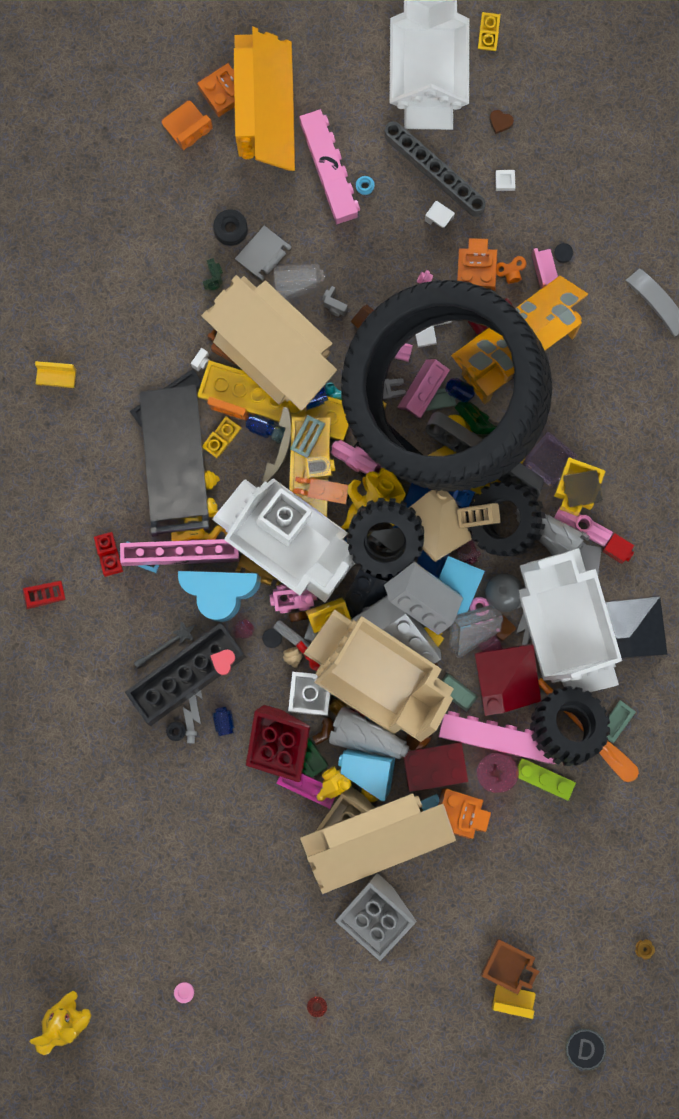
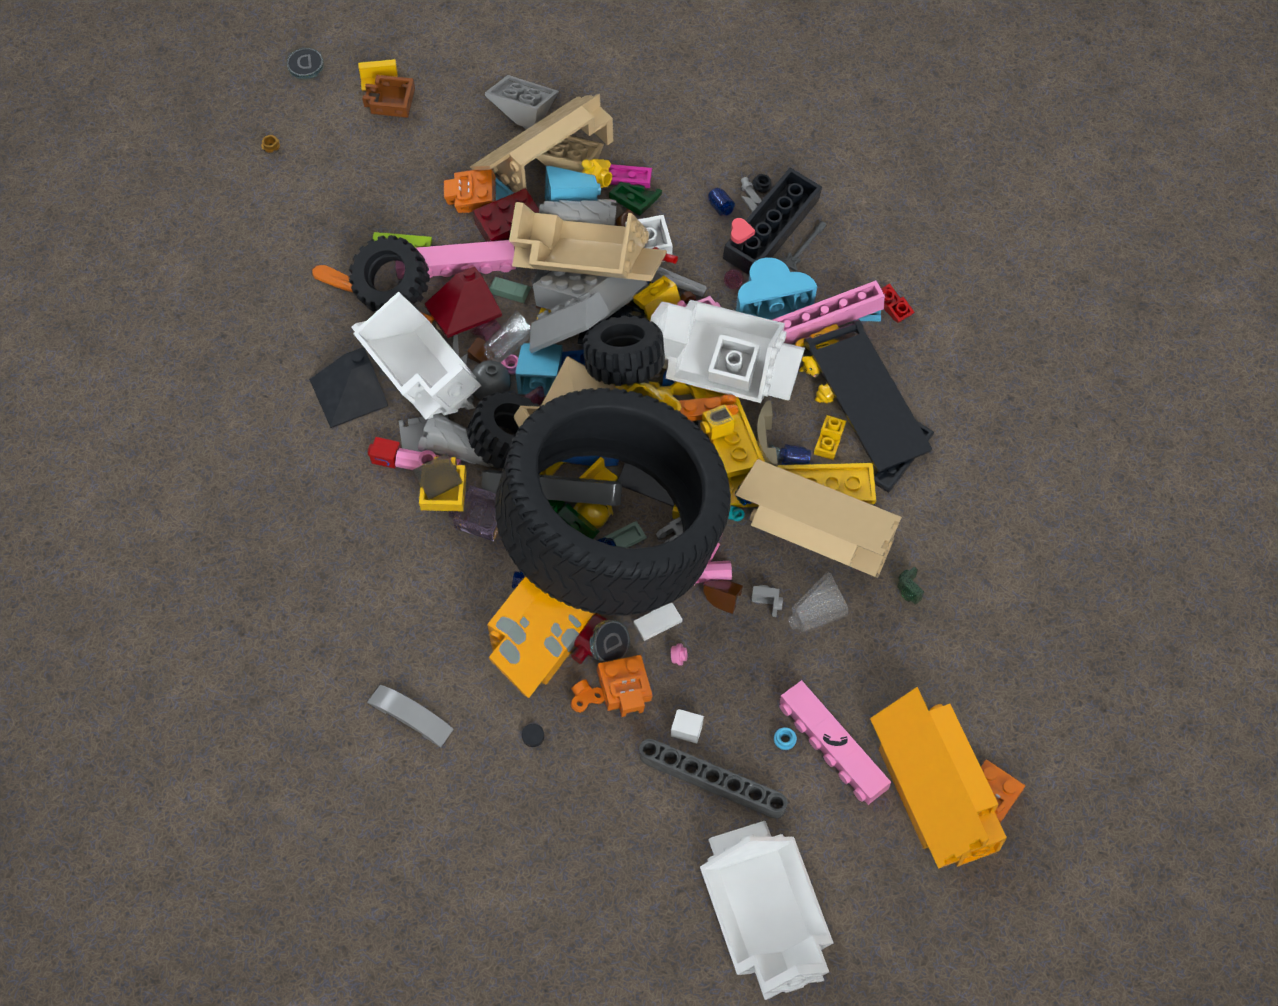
camera: 160 degrees right, 20 degrees down
(55, 374) = (1025, 442): yellow panel -> none
(61, 596) = (945, 240): red slope -> none
(184, 992) = (669, 9): bright pink tile -> none
(187, 125) = (1014, 738): orange bracket -> none
(200, 360) = (884, 497): white plate -> none
(228, 409) = (835, 451): orange tile -> none
(230, 238) = (923, 634): black tyre -> none
(262, 252) = (867, 631): light grey piece -> none
(272, 638) = (705, 279): black tile -> none
(277, 743) = (664, 195): dark red slope -> none
(292, 656) = (679, 268): tan plate -> none
(300, 451) = (739, 462): sand green tile -> none
(312, 1011) = (551, 24): clear red plate -> none
(424, 387) = (642, 529): bright pink panel -> none
(486, 771) = (447, 228): clear pink piece -> none
(489, 31) = (707, 973): yellow slope -> none
(500, 121) = (655, 864): reddish brown tile -> none
(505, 180) = (626, 794): white plate -> none
(544, 266) = (548, 709): bright pink panel -> none
(619, 719) = (344, 308): sand green tile -> none

